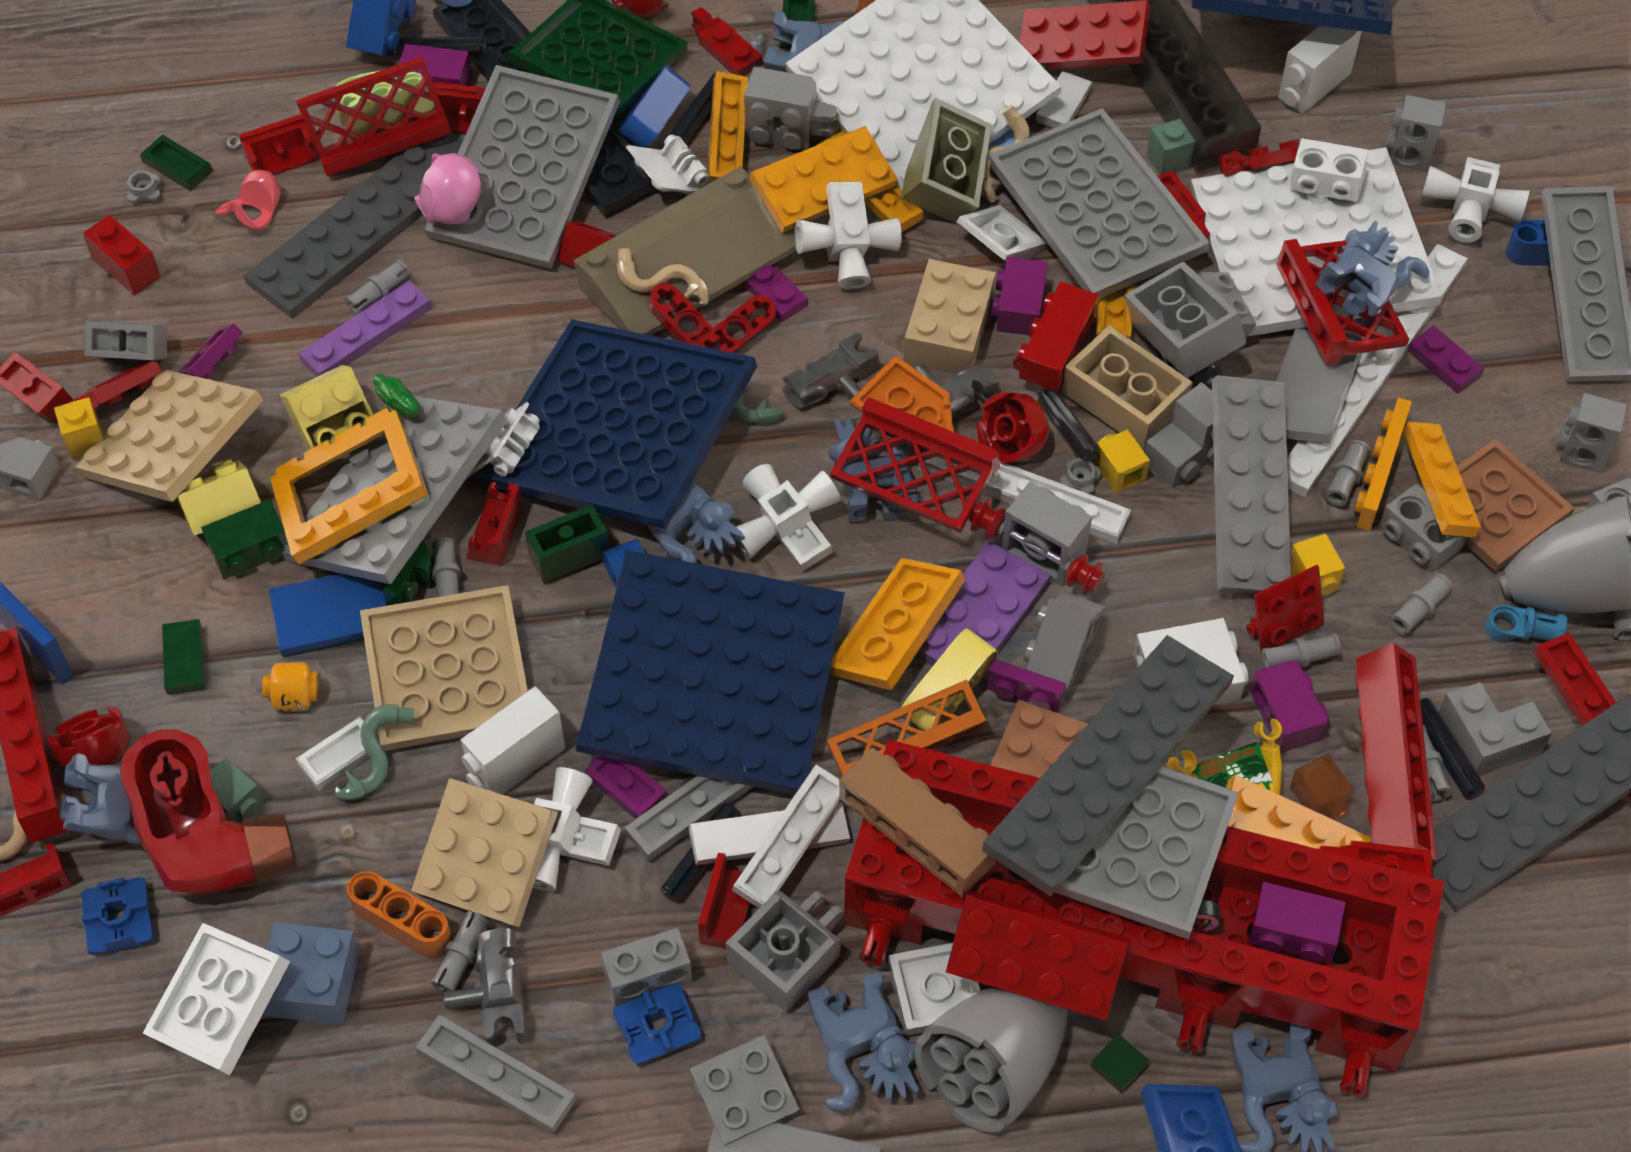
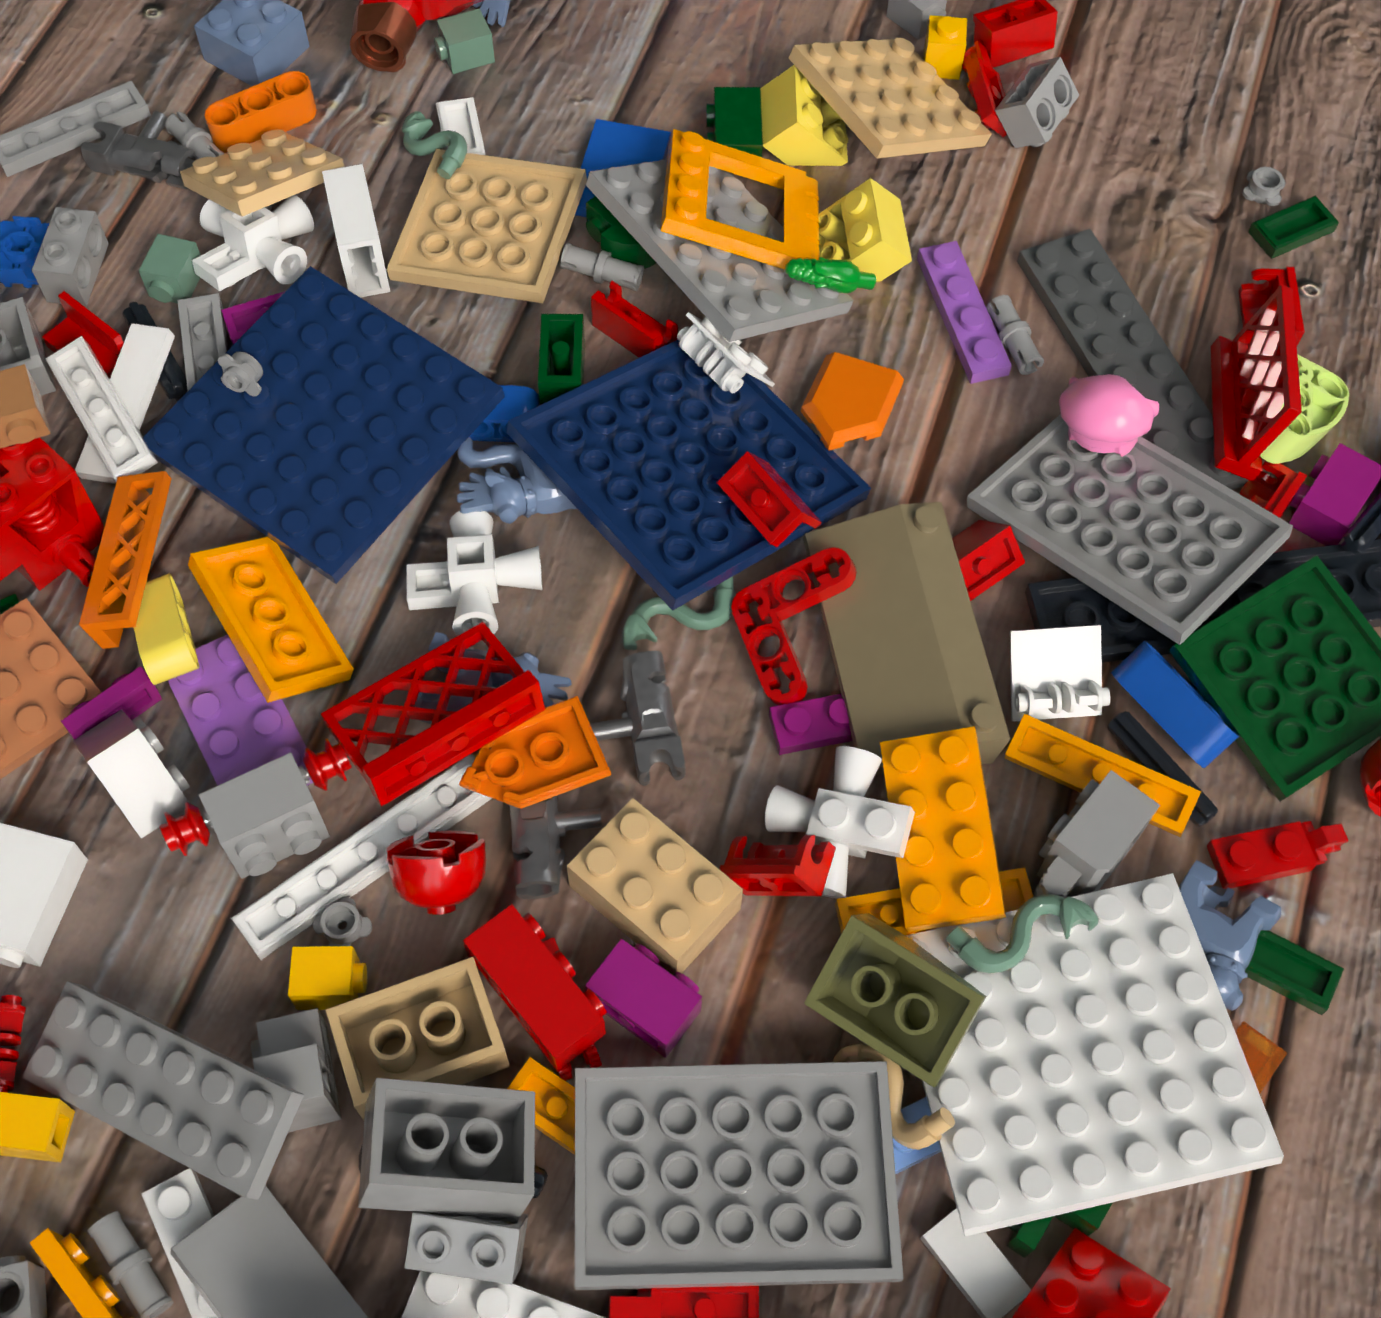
camera: 115 degrees right, 5 degrees up
(121, 255) = (1163, 135): red brick -> none
(183, 656) = (638, 58): dark green tile -> none
(218, 346) = (983, 161): magenta plate -> none
(258, 191) = (1209, 280): coral piece -> none
(290, 686) = (548, 112): light orange head -> none
(495, 363) = (851, 399): none -> orange tile
(618, 881) = (169, 269): none -> sand green brick
(626, 272) = (839, 614): tan animal -> none
(635, 347) = (766, 498): none -> red panel
(717, 719) = (241, 372): none -> light grey plate
(896, 254) = (779, 868): none -> red hinge
(899, 130) = (1069, 910): none -> sand green animal
(1003, 233) = (762, 1021): white slope -> none
(1068, 424) = (404, 941): black axle -> none

